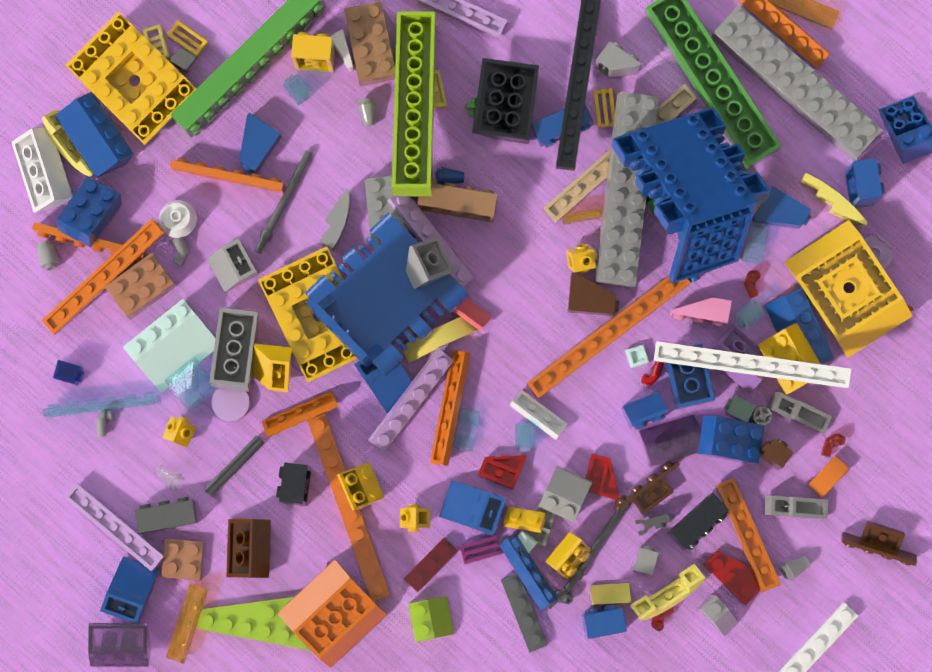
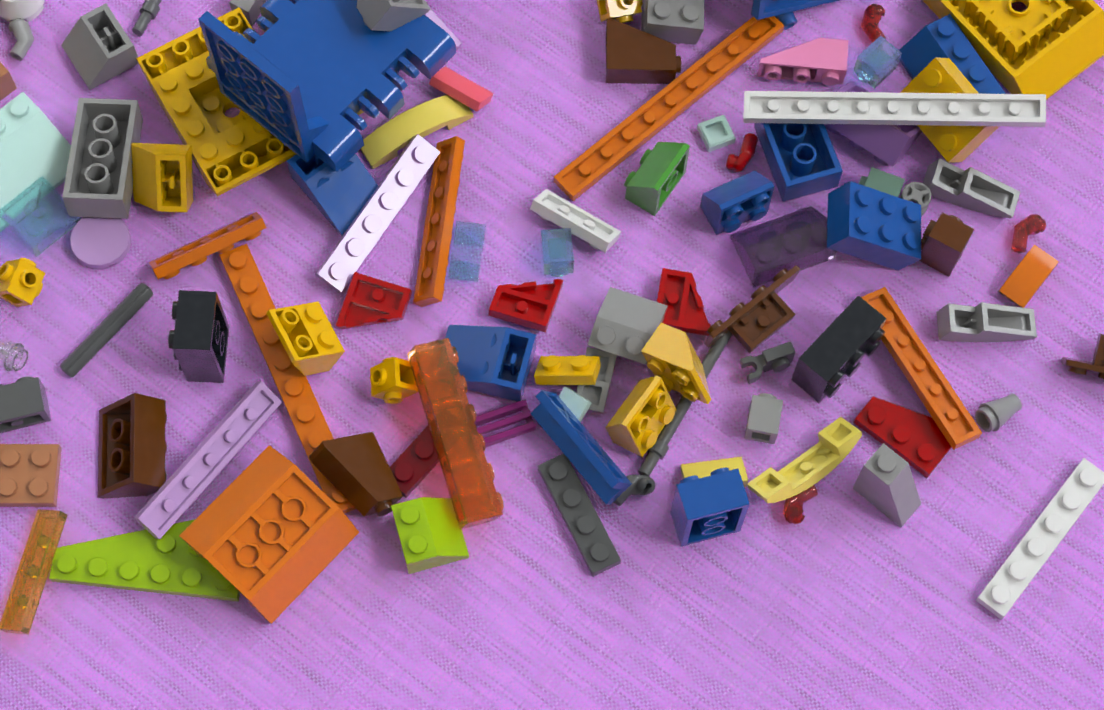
camera: 10 degrees left, 15 degrees down
(296, 561) = (207, 460): none -> lavender plate
(390, 579) = (359, 472): none -> reddish brown slope
(404, 461) = (372, 302): none -> red wing
(450, 558) = (455, 433): none -> clear orange brick
(594, 388) = (657, 175): none -> bright green slope
(594, 525) = (676, 362): none -> yellow slope

